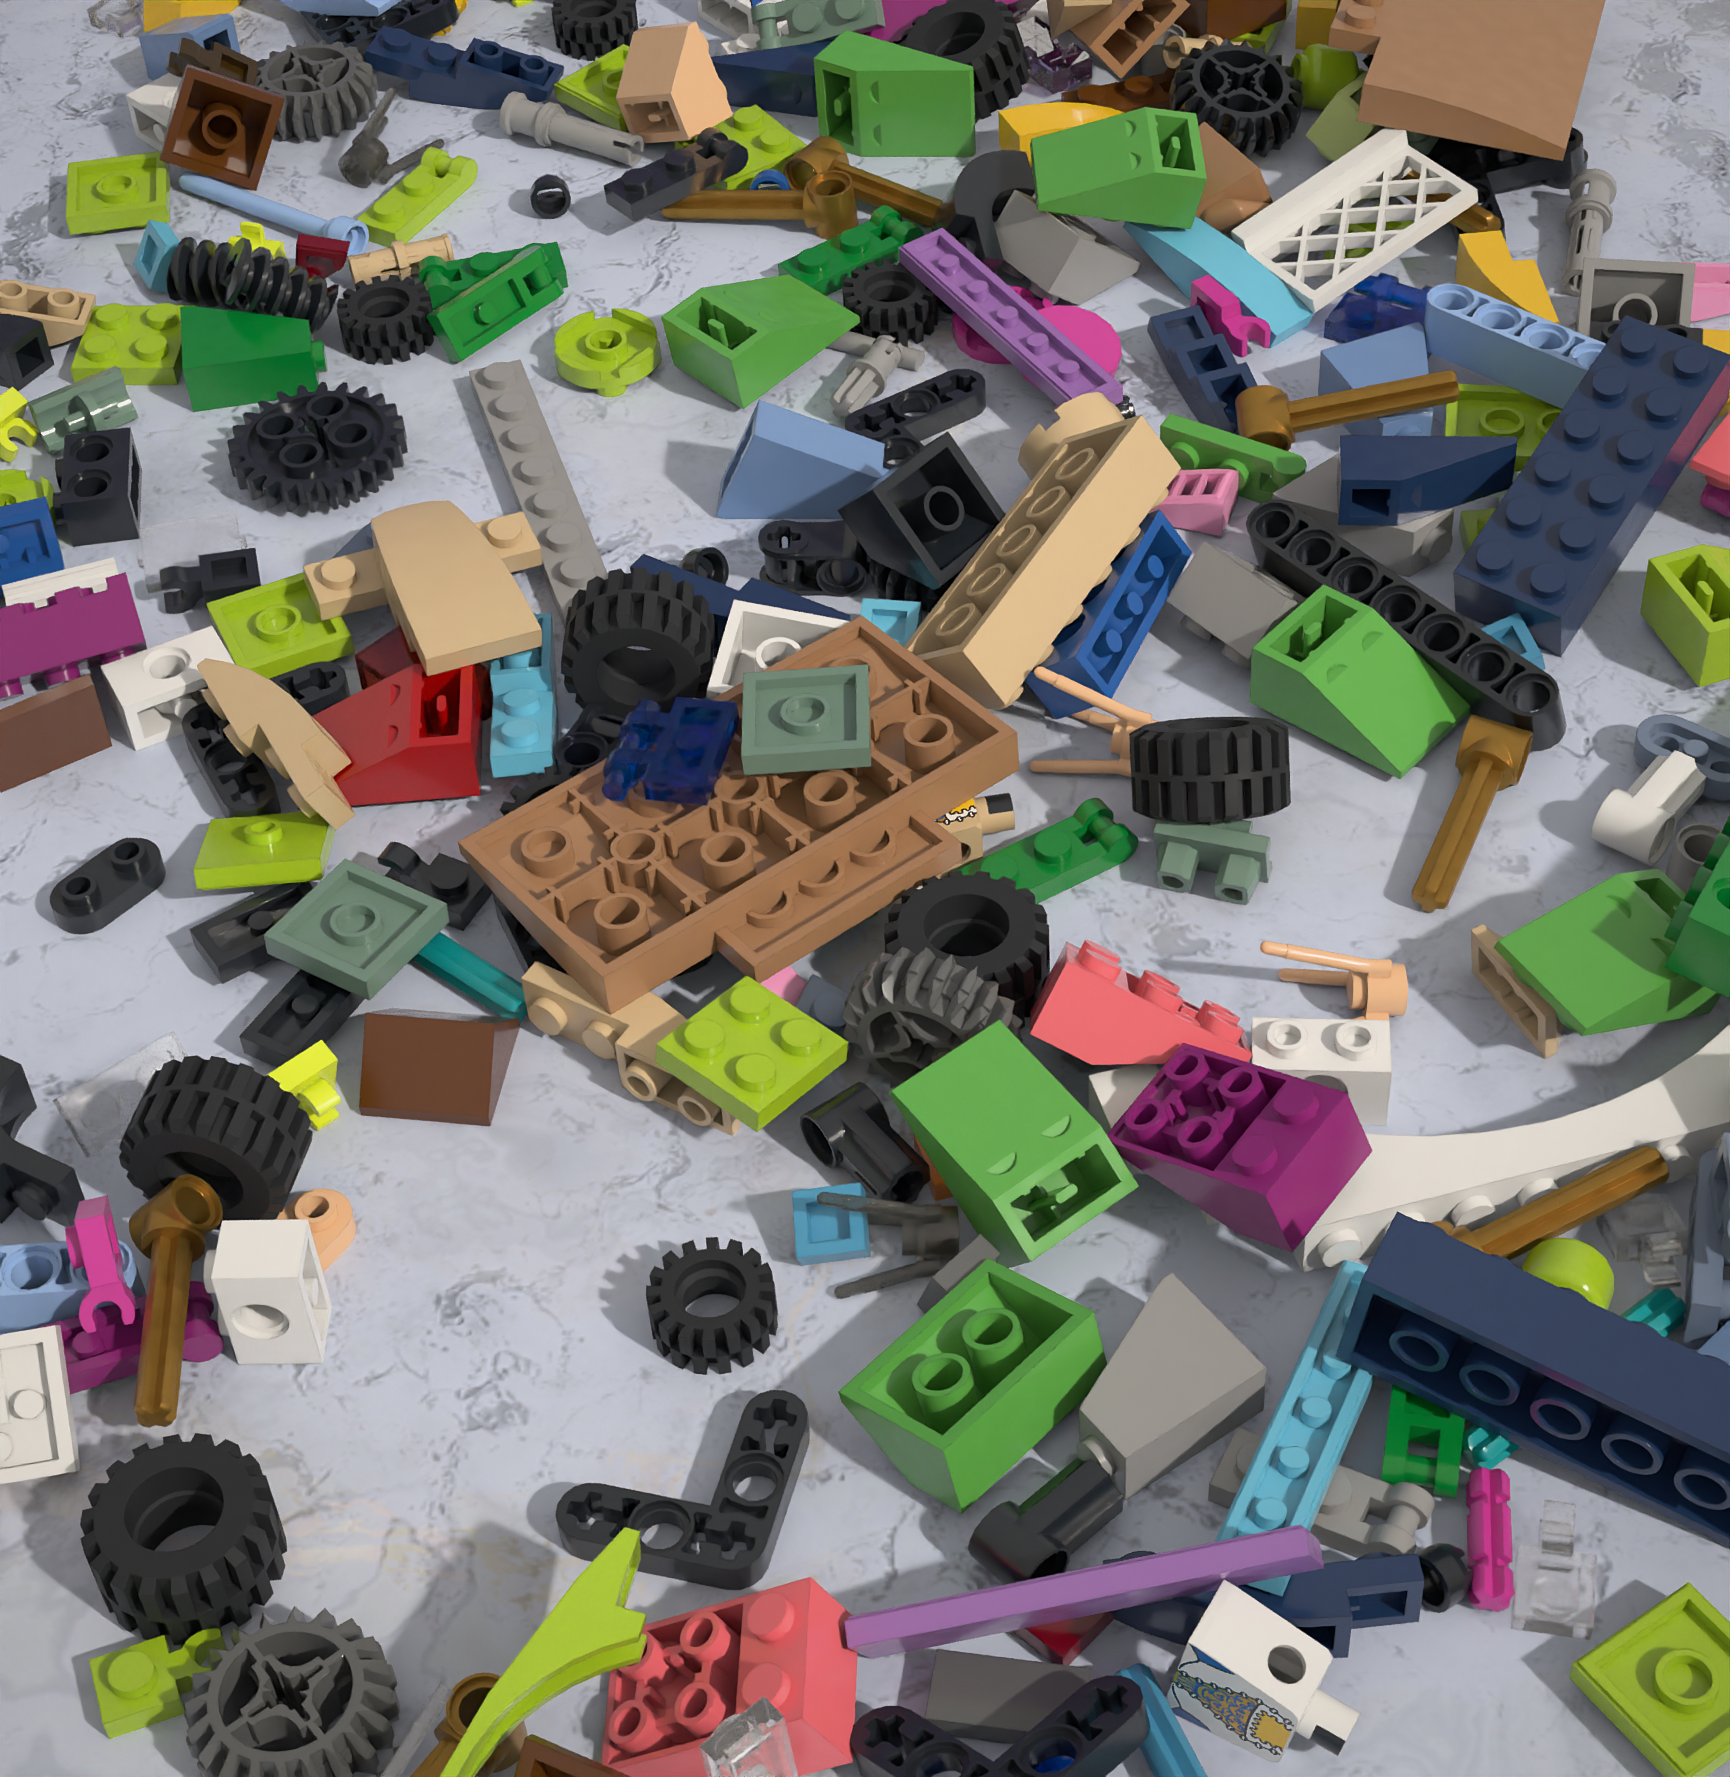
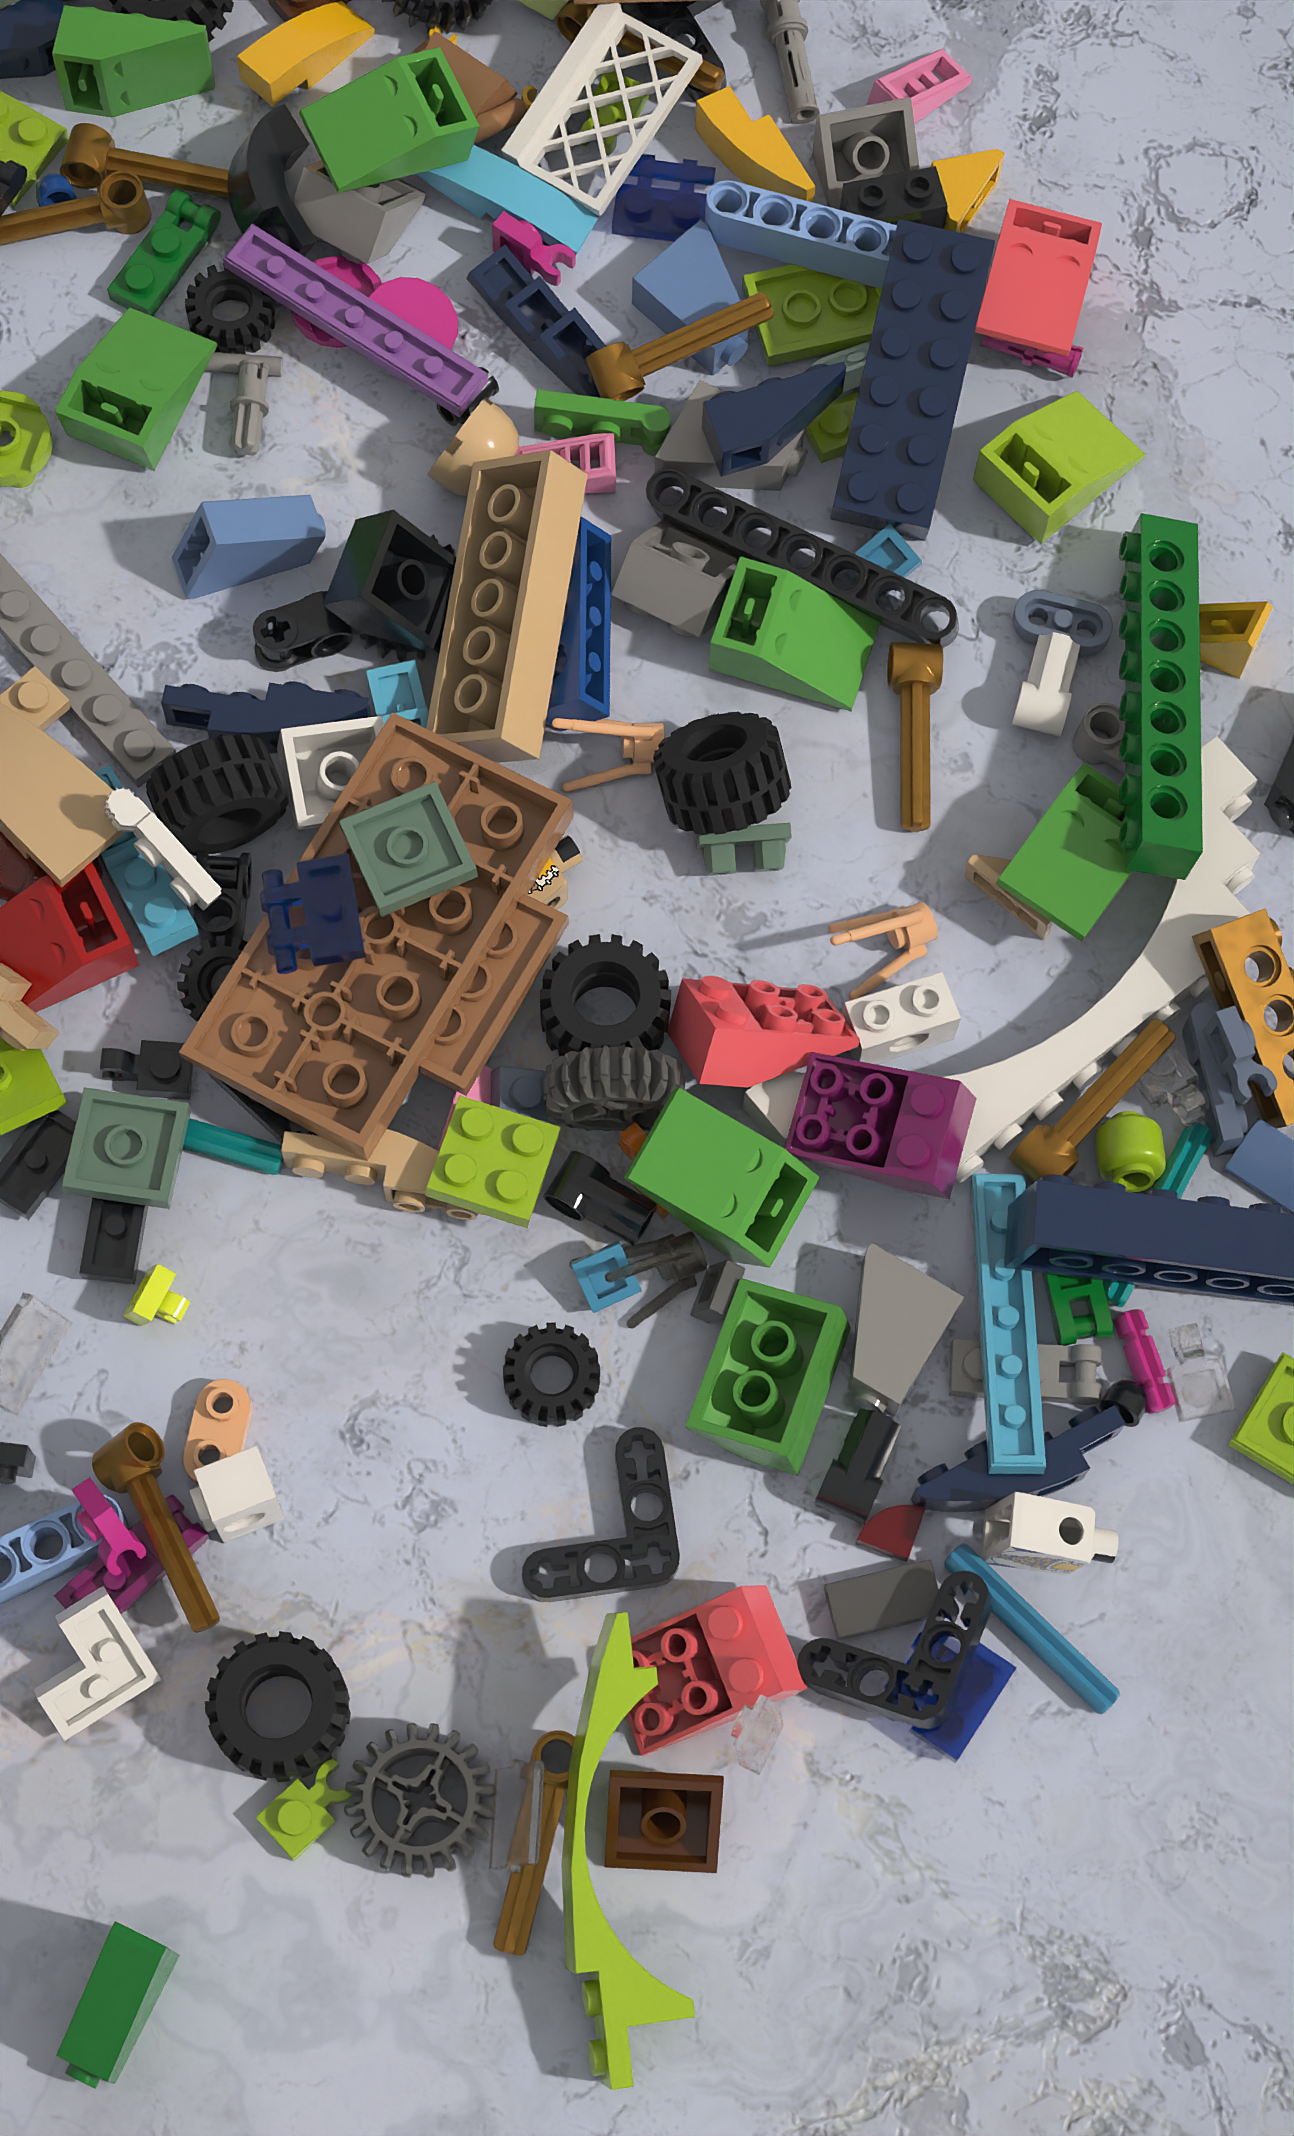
camera: 30 degrees left, 25 degrees up
(221, 1127) = (131, 1382): black tyre -> none
(434, 1065) = (239, 1234): reddish brown slope -> none
(544, 655) = (160, 846): none -> white hinge
(707, 563) = (214, 663): black hinge -> none
(946, 398) = (302, 462): black beam -> none
(1057, 855) = (618, 881): green plate -> none
(1084, 1592) = (920, 1525): medium lavender tile -> none

